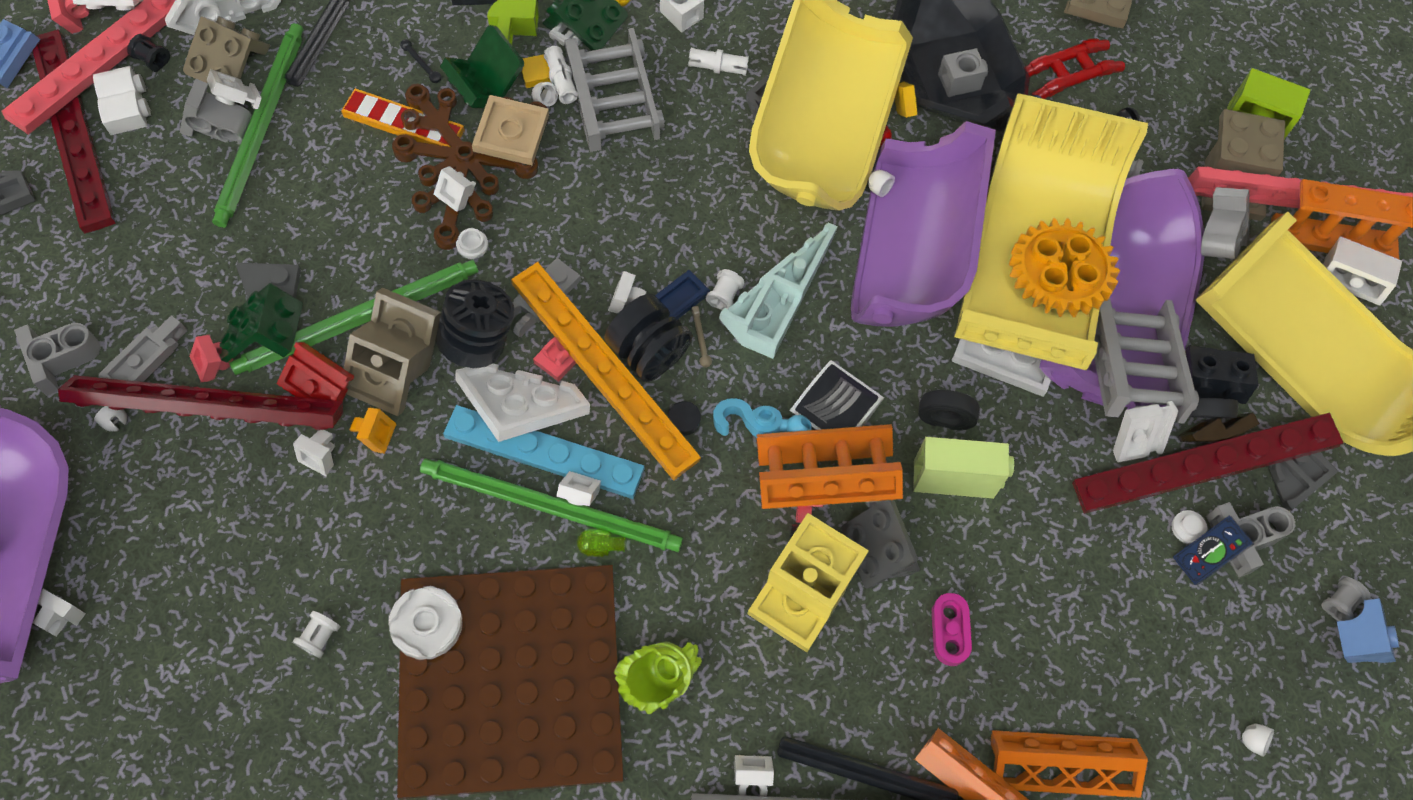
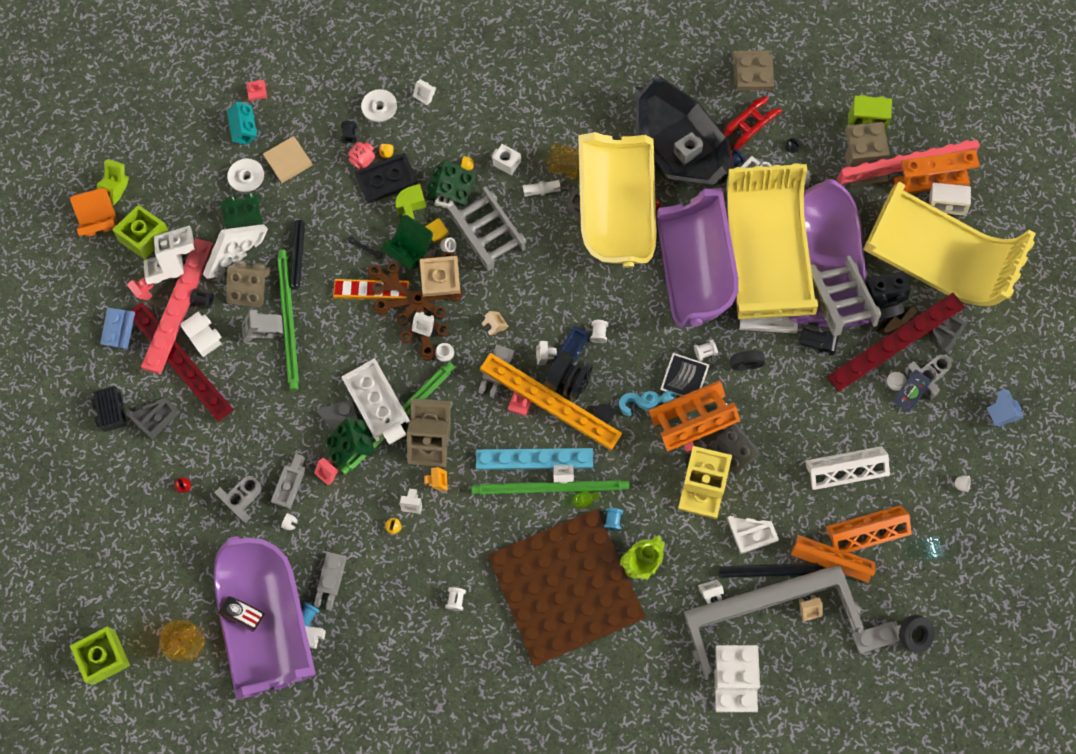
camera: 10 degrees left, 5 degrees up
(66, 574) = (308, 613): none -> dark azure bush
(131, 532) = (330, 579): none -> light grey hinge
(201, 401) = (338, 496): dark red plate -> none
(231, 89) = (268, 307): white plate -> none
(276, 482) = (396, 528): none -> yellow hinge
(313, 375) = (393, 462): red plate -> none
(331, 280) = (376, 401): none -> white hinge
(425, 622) = (512, 573): white tile -> none
(474, 323) = (470, 400): black wheel -> none
(516, 405) = (510, 435): white plate -> none
(560, 74) = (453, 230): white pin -> none
(569, 223) = (496, 321): none -> tan tile
(632, 592) = (613, 519): none -> dark azure bush
(705, 360) = (603, 376): dark tan hinge -> none
(762, 29) = (563, 160): none -> clear yellow brick
(767, 310) = (626, 337): light aqua wedge -> none
(859, 699) = (751, 533): none -> white wing
(881, 182) = (664, 235): white hinge -> none
(896, 368) = (706, 350): none -> white bush
(906, 100) = (661, 178): yellow tile -> none
(951, 630) = (788, 481): dark pink plate -> none
(962, 467) = (765, 391): yellowish green brick -> none
(1067, 631) = (847, 461): none -> white fence
(1084, 422) = (818, 340): none -> black piece
(1090, 263) = (769, 265): light orange gear -> none
(1144, 431) = (856, 336): white plate -> none
(1227, 224) = (868, 198): light grey tile -> none
(1346, 599) = (989, 393): light grey bush -> none

